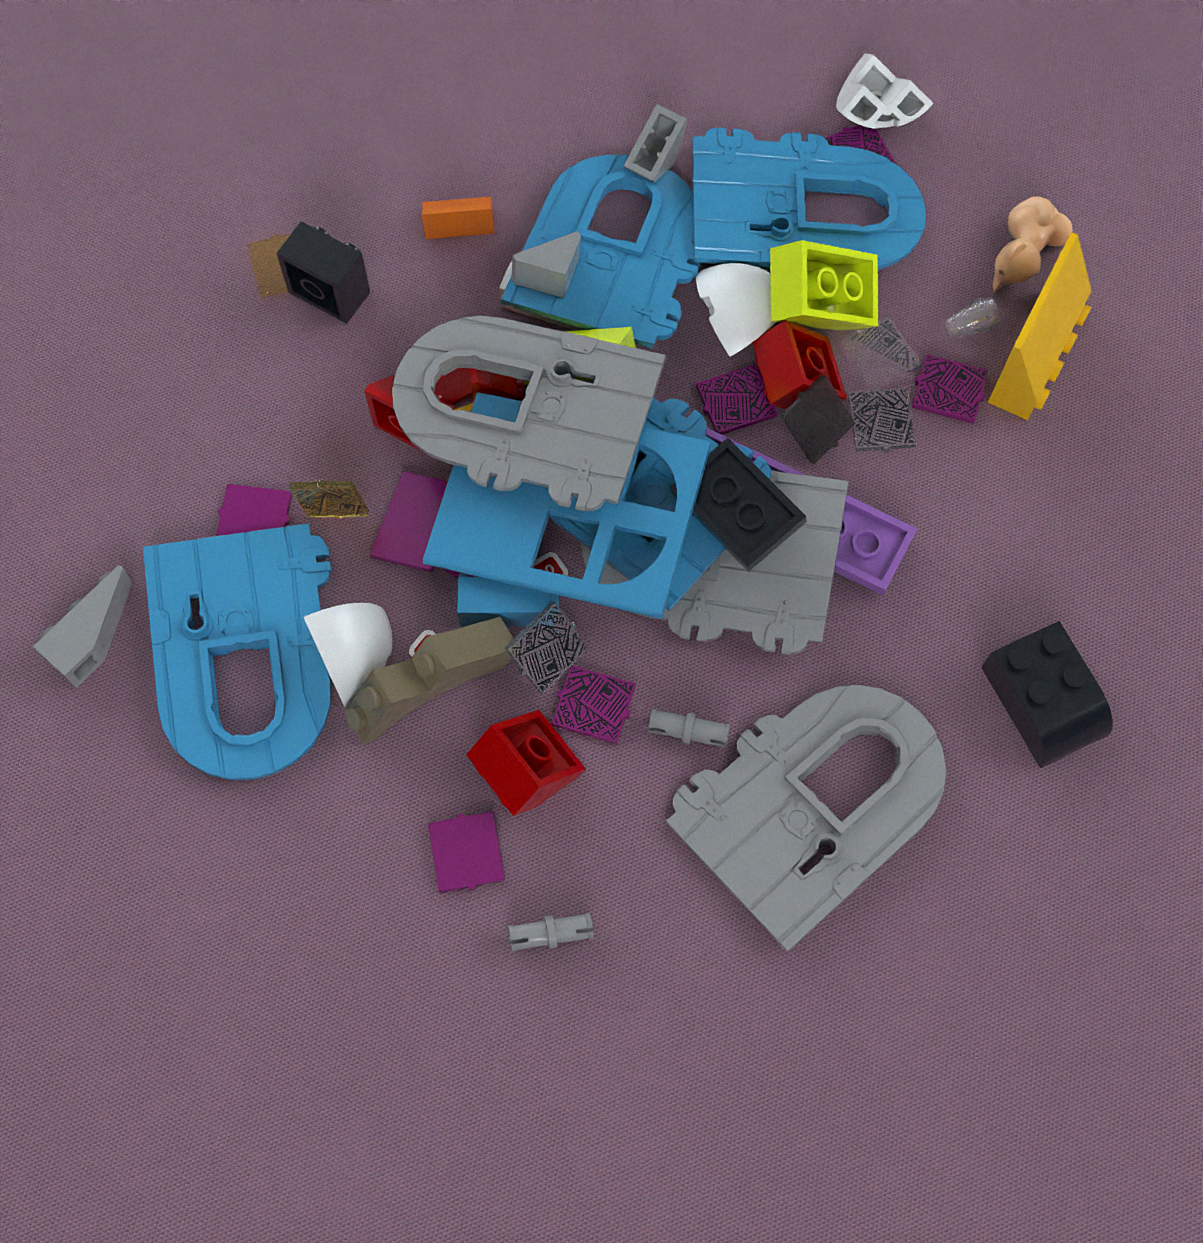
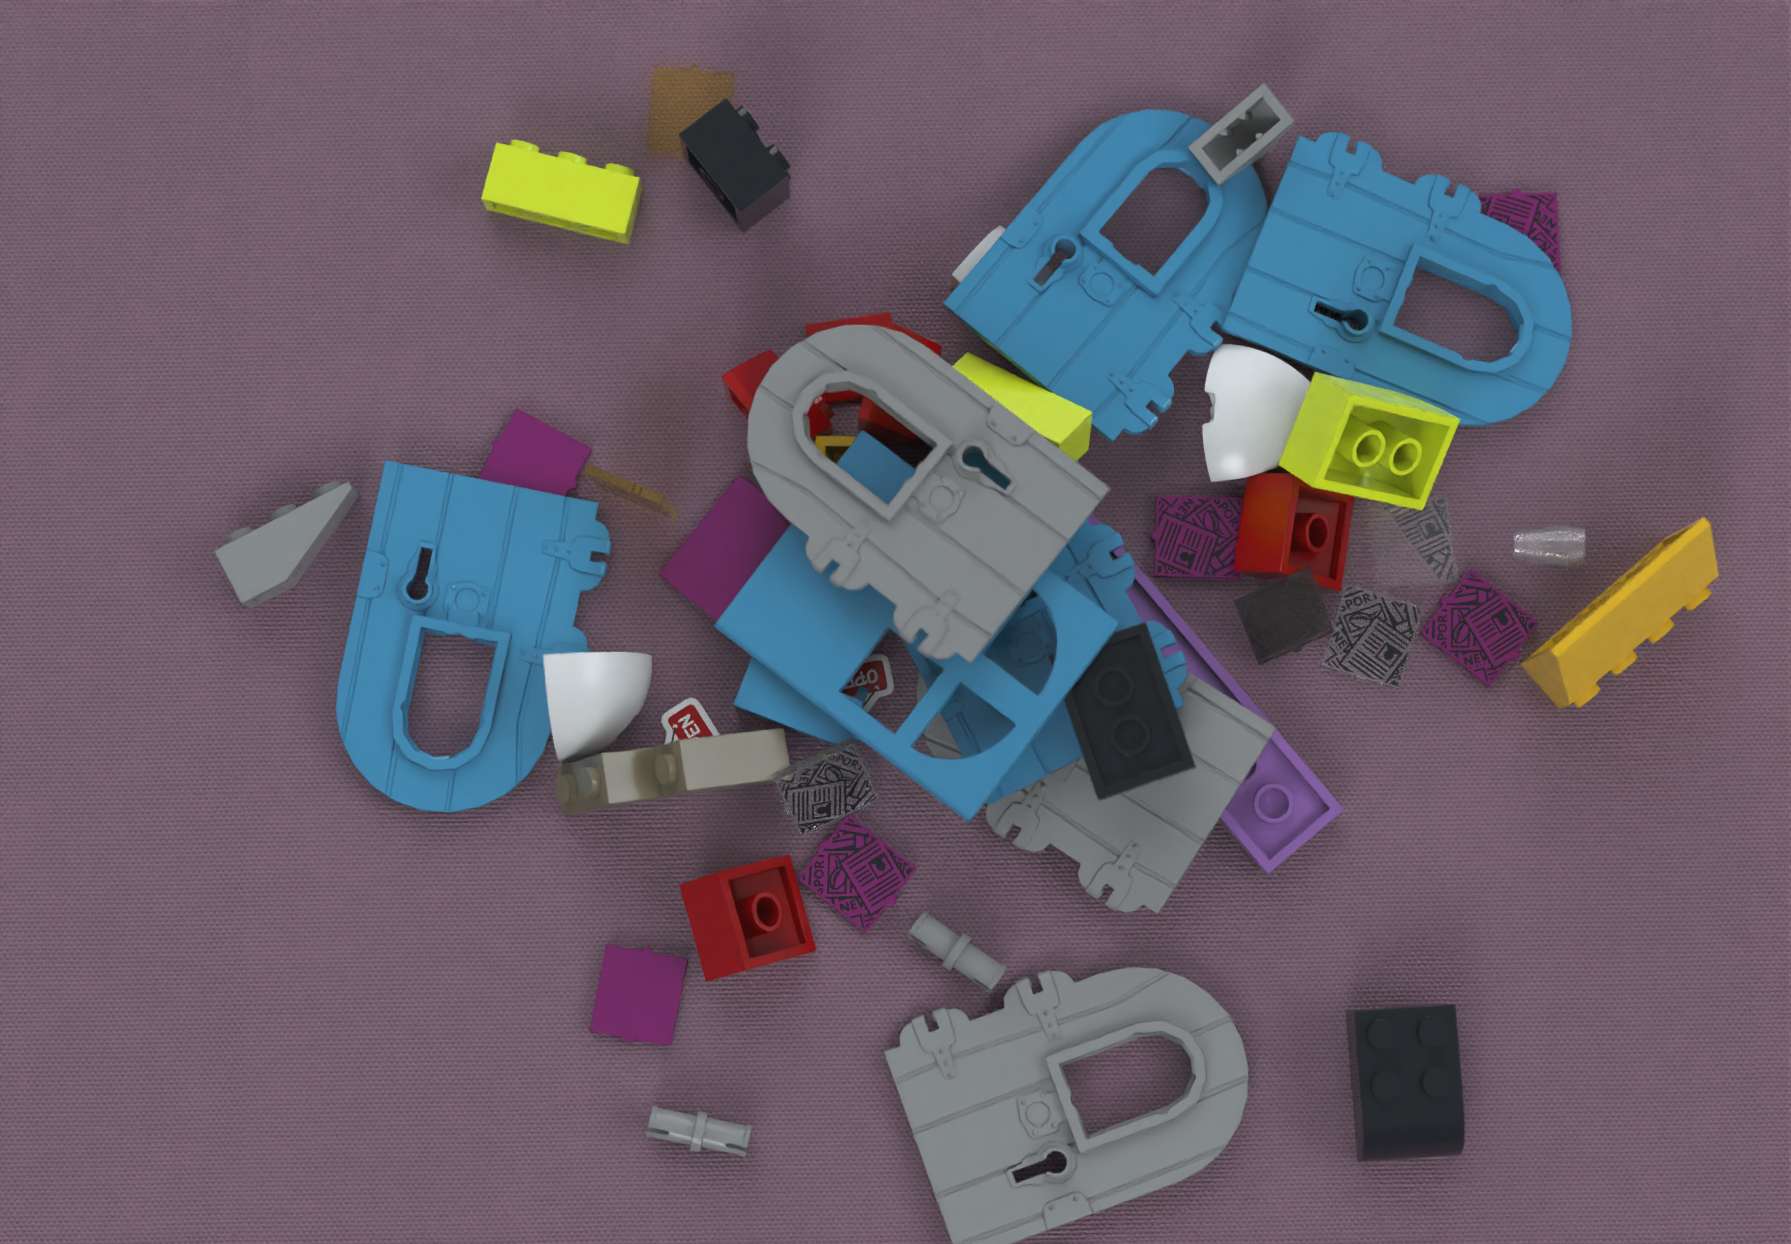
camera: 20 degrees right, 15 degrees up
(210, 335) = (563, 191): none -> neon yellow brick
(457, 217) = (943, 132): orange panel -> none
(548, 265) = (1021, 284): light grey slope -> none
(878, 98) = (1577, 167): white brick -> none
(1032, 226) = (1692, 443): light nougat animal -> none

